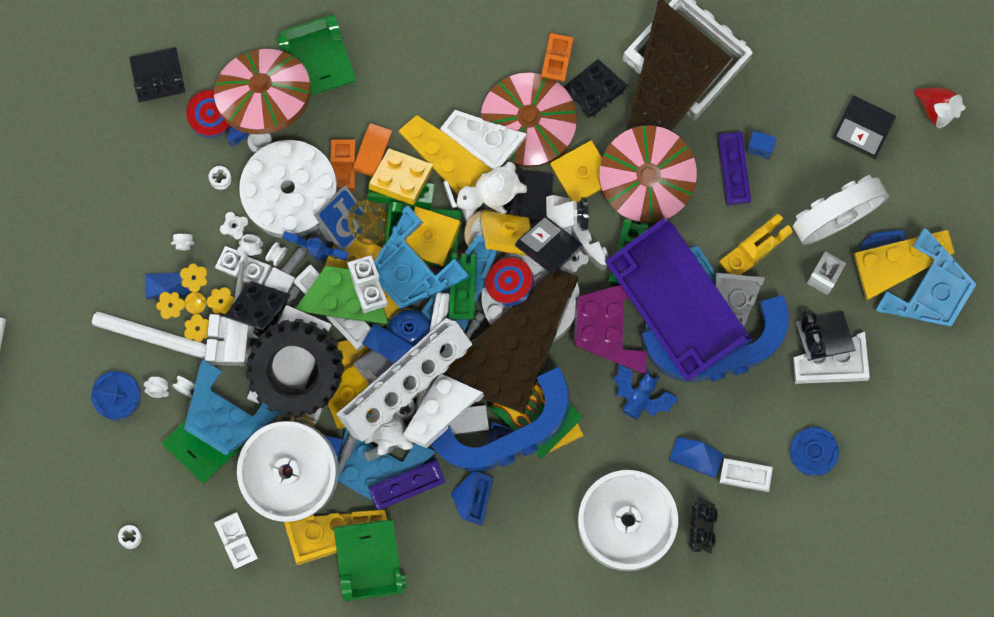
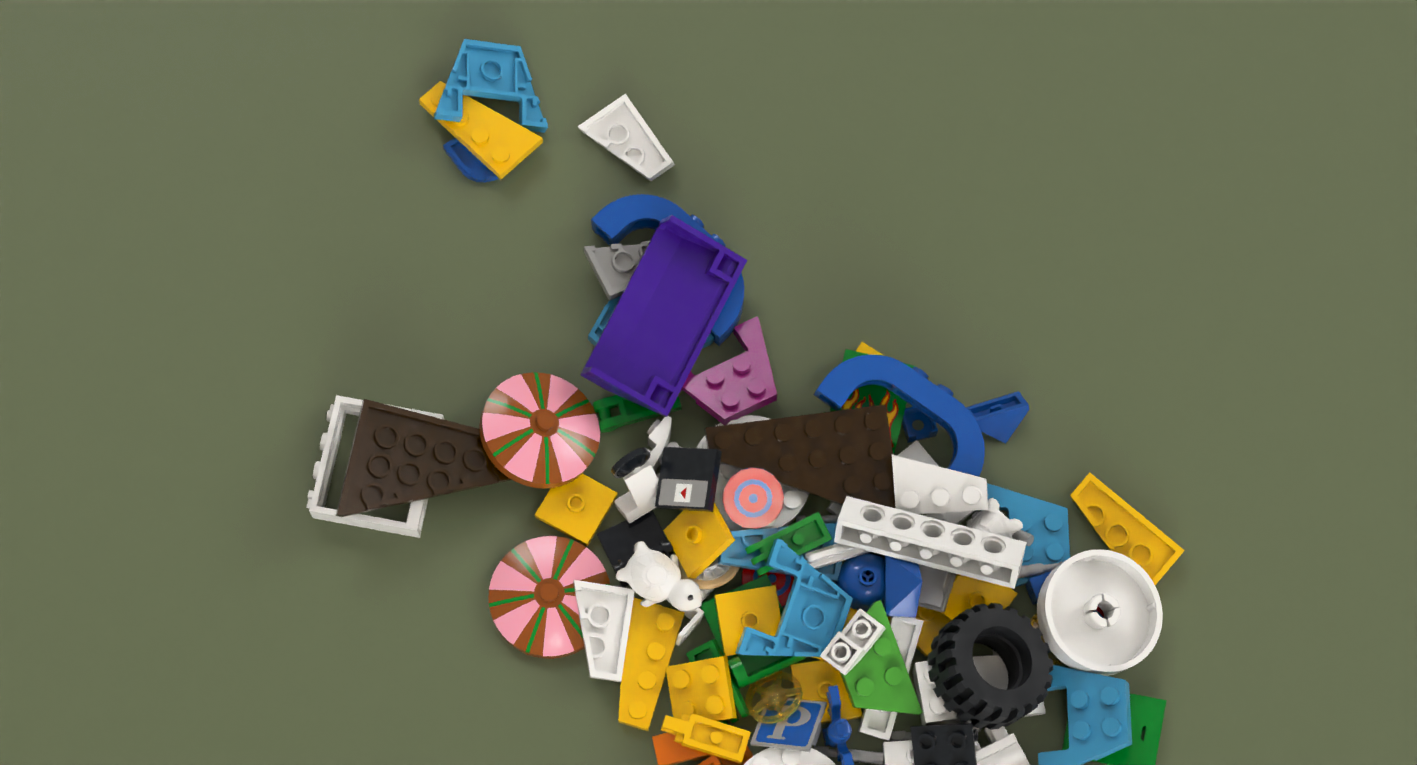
camera: 120 degrees left, 5 degrees down
(129, 545) = (1277, 740): white bush -> none
(235, 540) = (1199, 632): white slope -> none
(367, 161) = (708, 736): none -> yellow hinge
(370, 563) = (1134, 476): green door -> none
(406, 484) = (1029, 488): dark purple tile -> none
(557, 57) = (460, 606): orange slope -> none
(595, 88) = (471, 544): black hinge -> none
(634, 495) = (912, 273): white piece -> none
(639, 398) = (787, 307): blue animal -> none
(696, 456) = (812, 221): blue slope -> none
(705, 516) = (891, 164): black hinge -> none
(734, 168) = (476, 351): dark purple tile -> none
(746, 475) = (800, 161): white plate -> none
(755, 247) = (554, 279): yellow plate -> none
(761, 143) = (434, 334): blue piece -> none
(814, 451) = (733, 111): blue tile -> none
(824, 335) = (606, 160): black hinge -> none
(826, 273) = (536, 195): white slope -> none
(840, 209) = (470, 201): white piece -> none
(864, 127) = (350, 244): black tile -> none
(940, 104) = (281, 179): hat -> none

